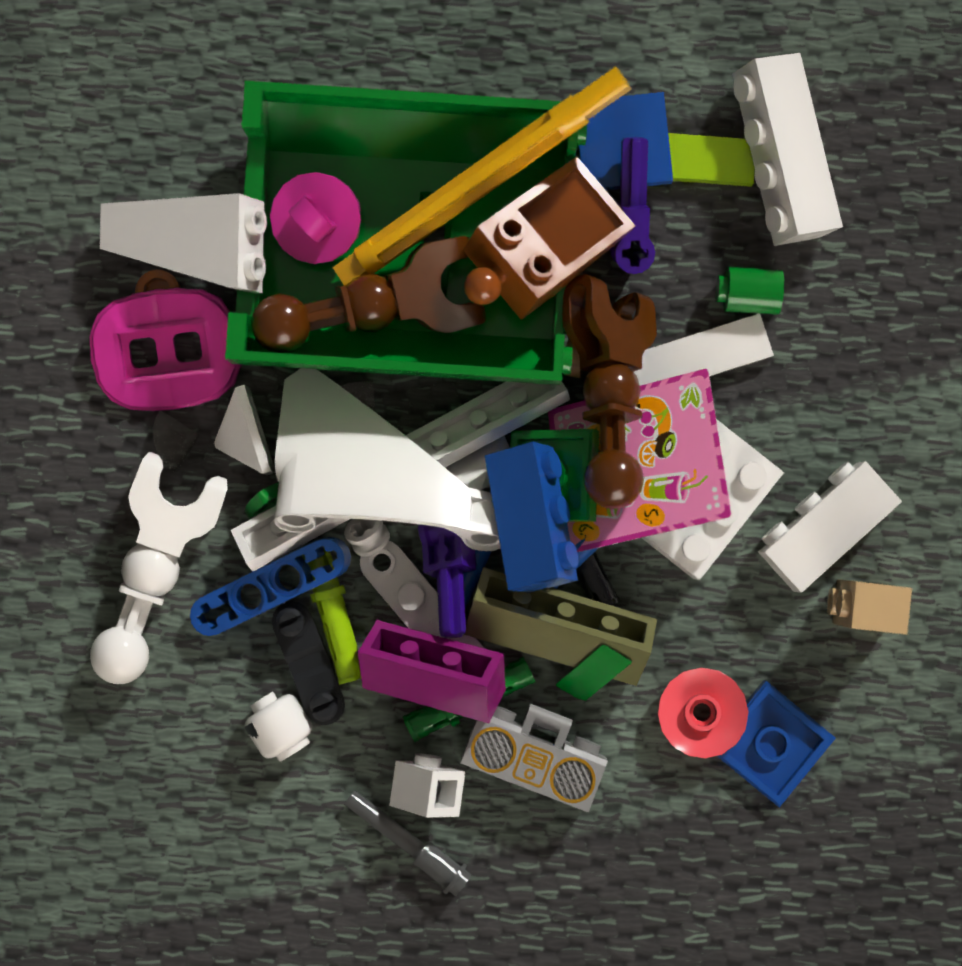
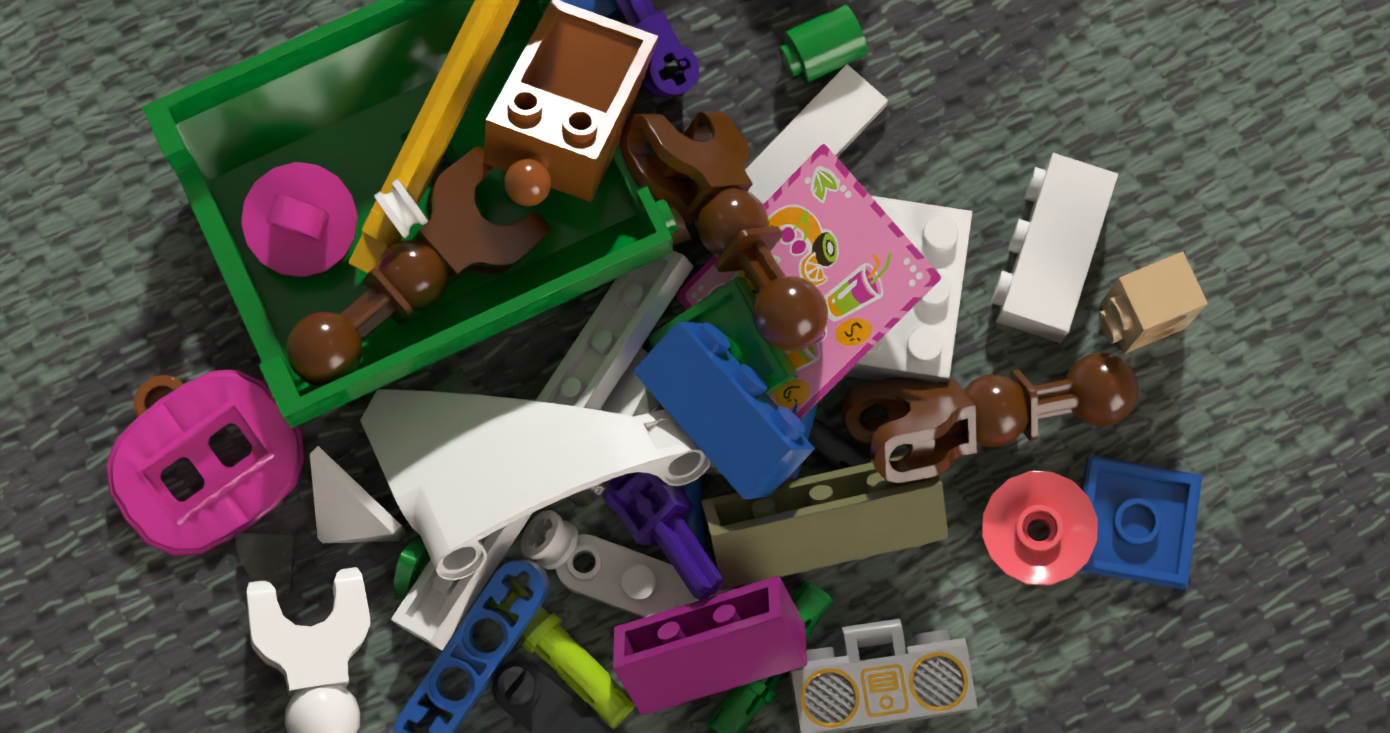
camera: 30 degrees left, 10 degrees down
(197, 236) = (170, 312): white slope -> none
(386, 253) = (401, 208): none -> white bush
(593, 673) = (892, 550): green sticker -> none
(678, 607) = (993, 410): none -> reddish brown piece

